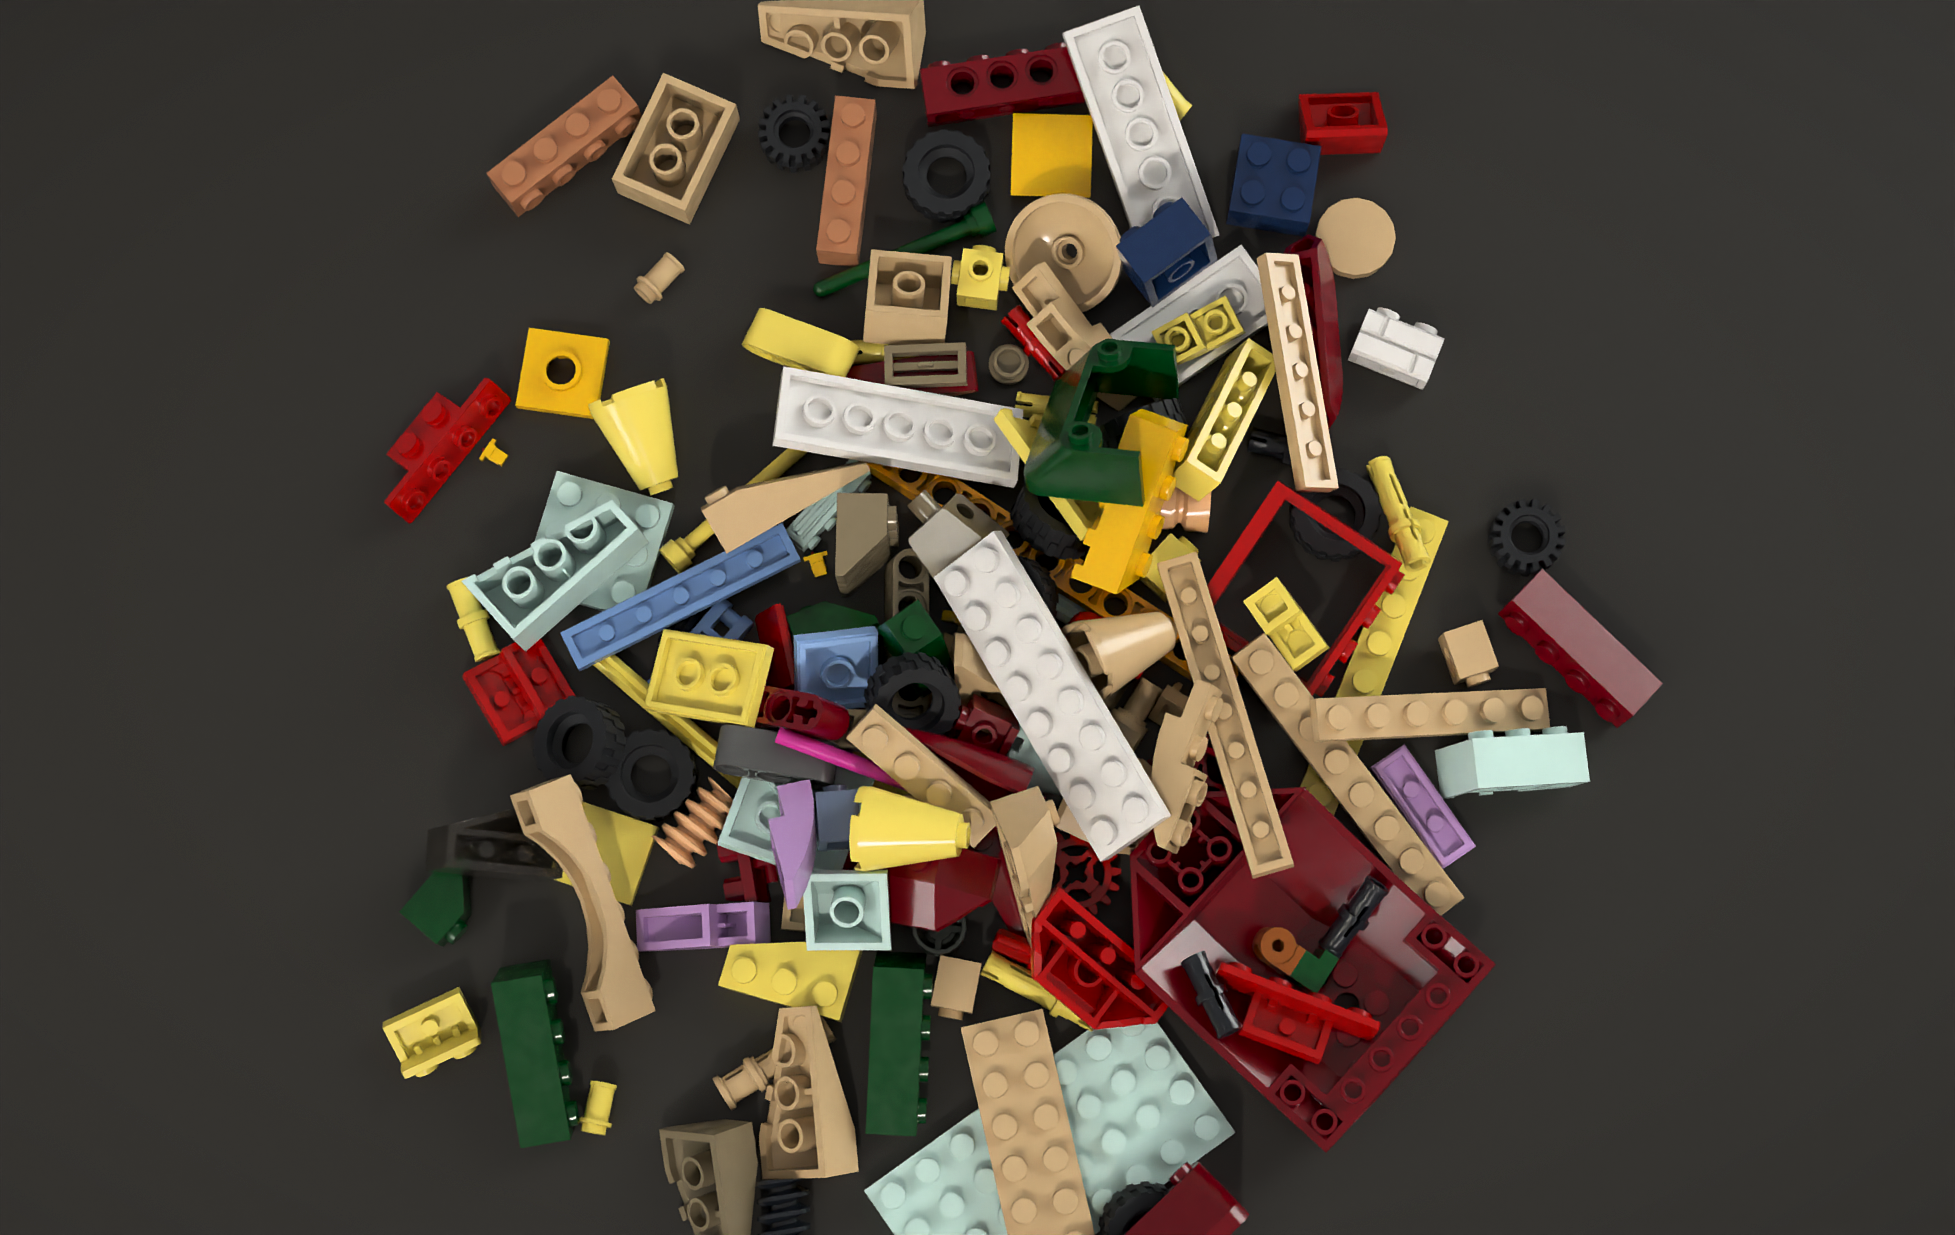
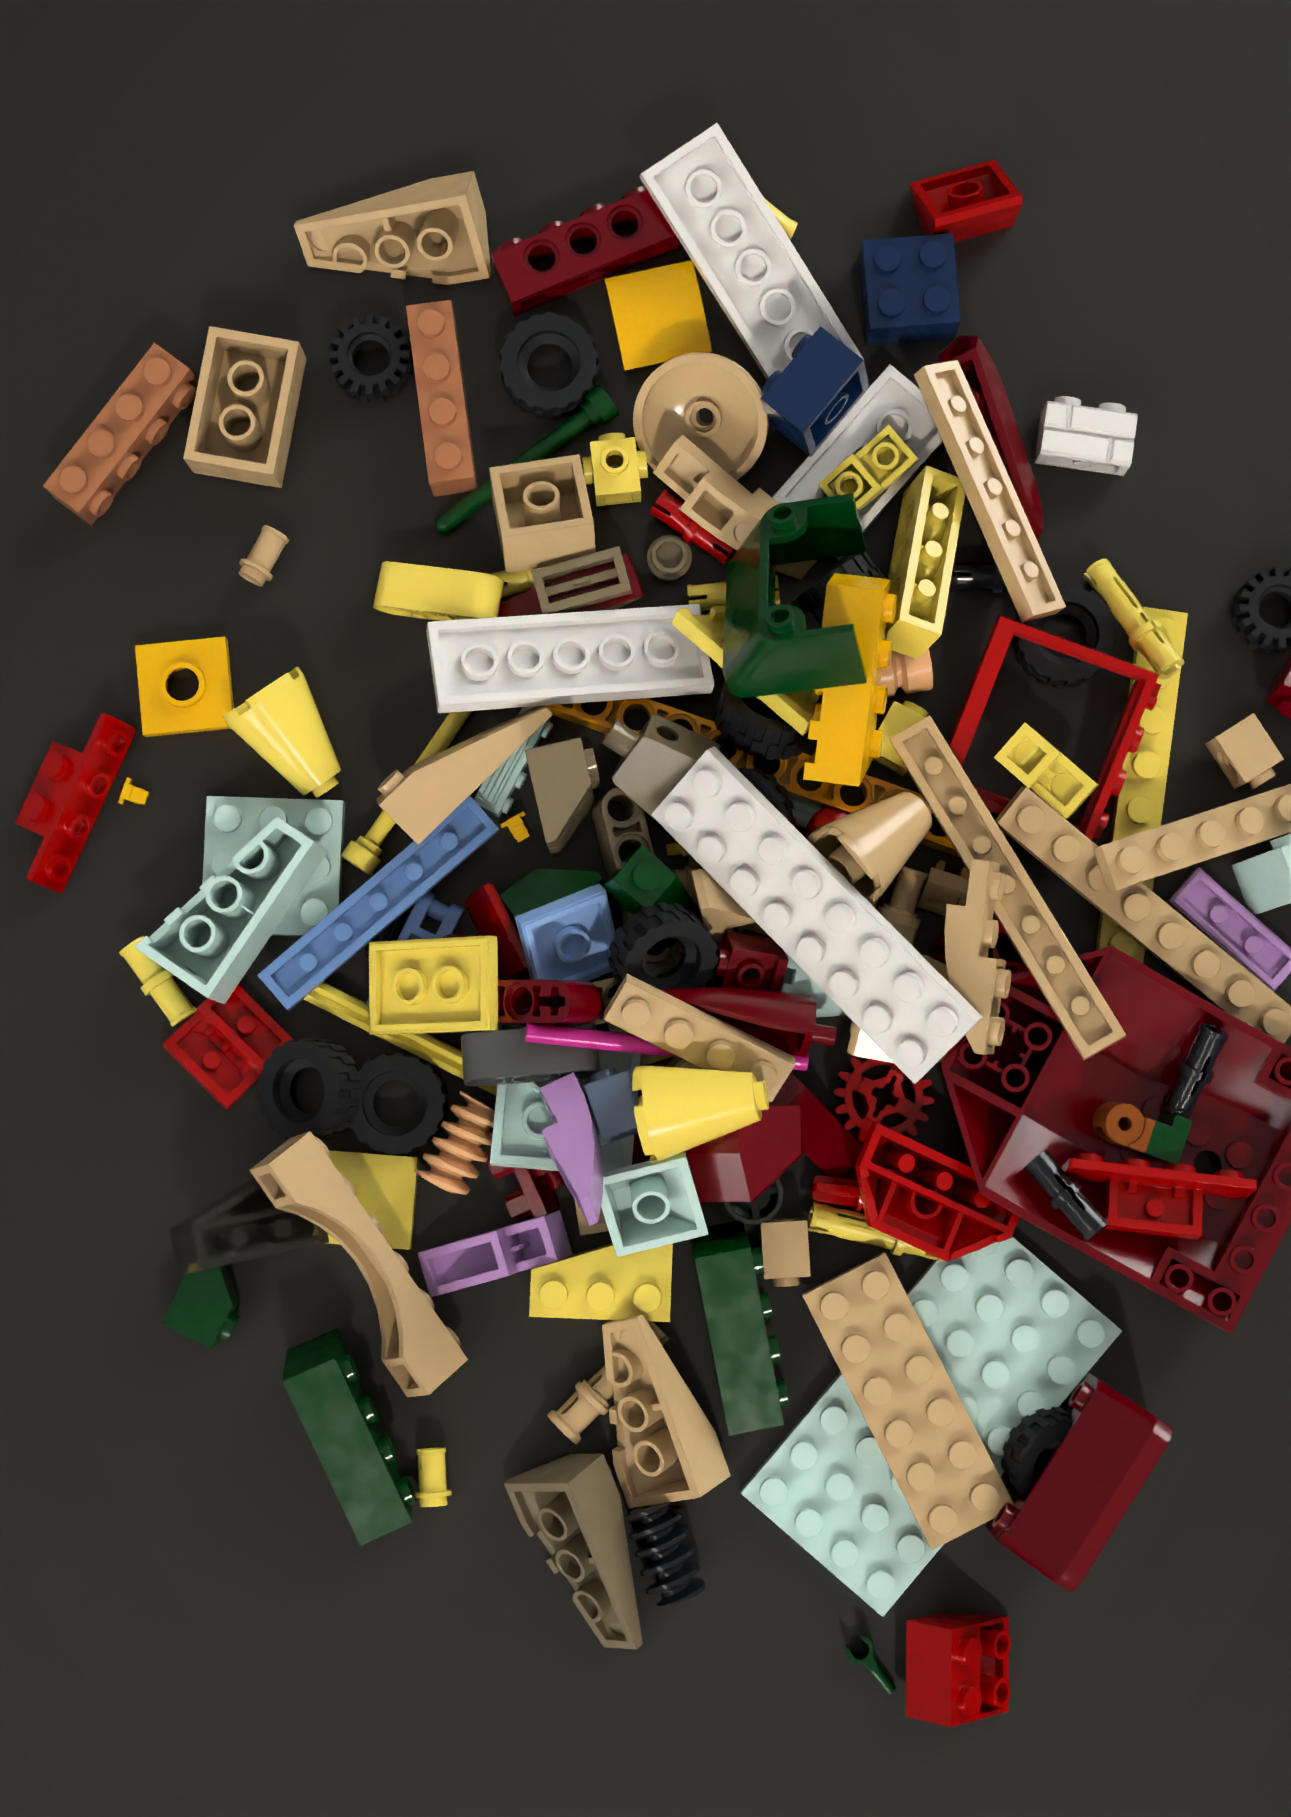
camera: 15 degrees left, 5 degrees up
(433, 1033) = (233, 1443): light yellow bracket -> none
(1029, 848) = (833, 1090): tan wedge -> none
(1356, 237) = (1012, 324): tan tile -> none

